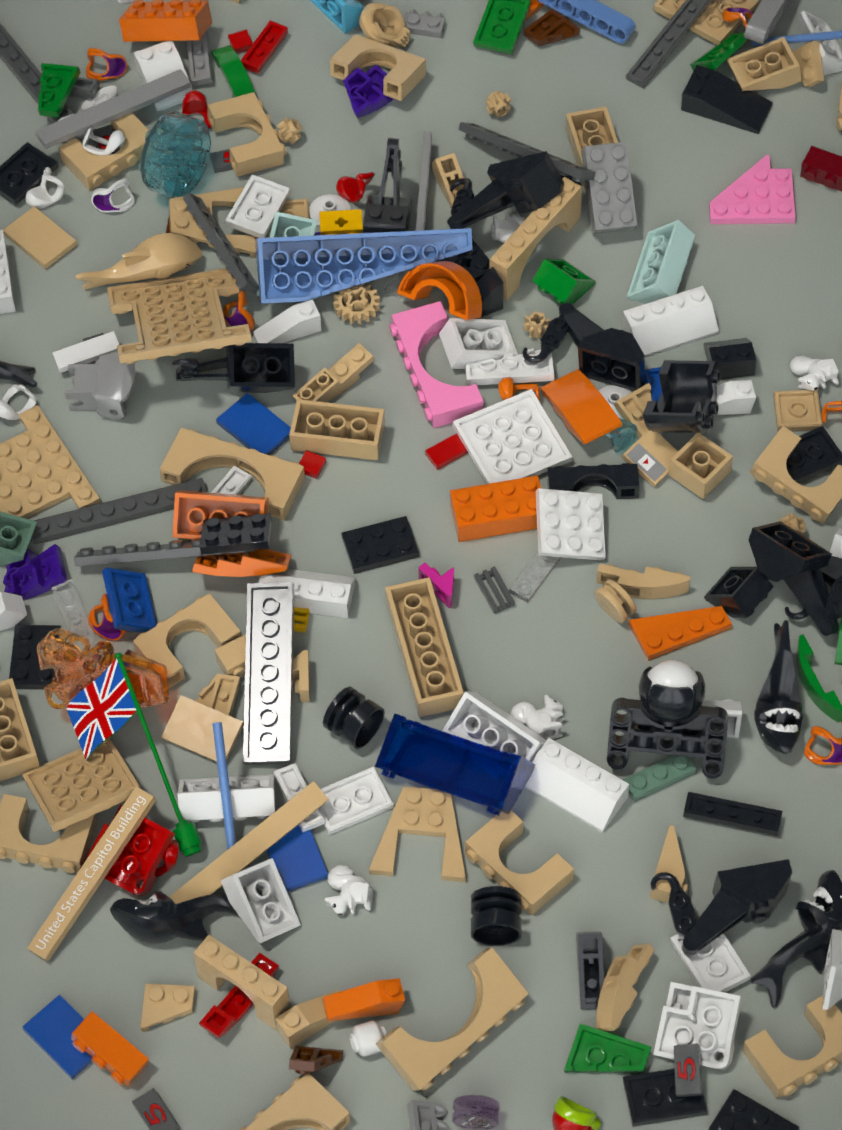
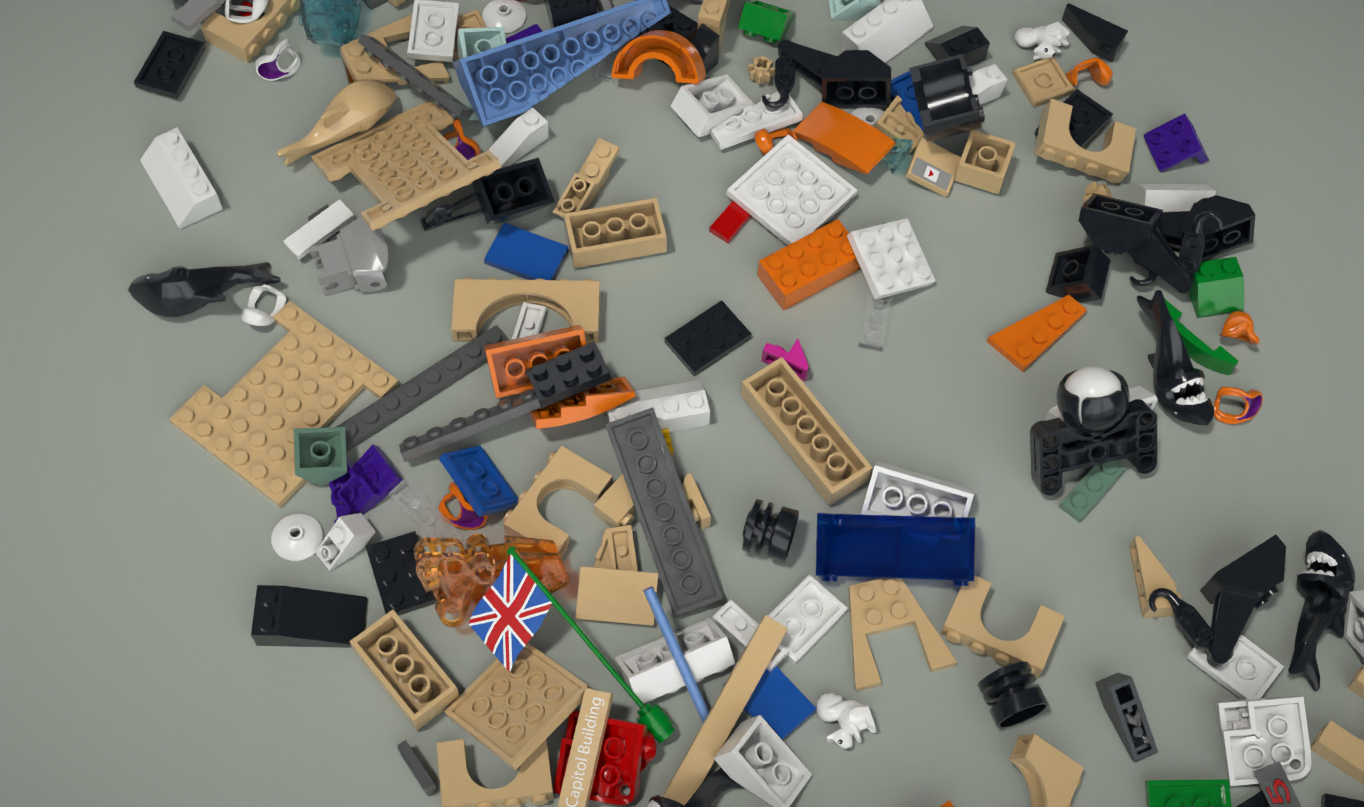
camera: 25 degrees left, 5 degrees up
(39, 237) = (217, 125): tan tile -> none
(40, 197) = (197, 83): white piece -> none
(312, 464) = (604, 274): red tile -> none
(341, 222) = (526, 23): yellow brick -> none
(357, 303) = (575, 100): tan gear -> none
(441, 401) = (701, 172): bright pink arch -> none
(487, 575) = (850, 345): dark grey tile -> none
(542, 721) = (955, 468): white animal -> none
(577, 785) = (1023, 525): white slope -> none
(615, 601) = (970, 322): tan head -> none
(617, 990) = (1166, 727): tan slope -> none
(618, 479) = (914, 199): black arch -> none
(652, 584) = (989, 296): tan slope -> none
(732, 813) = (1182, 502): black plate -> none

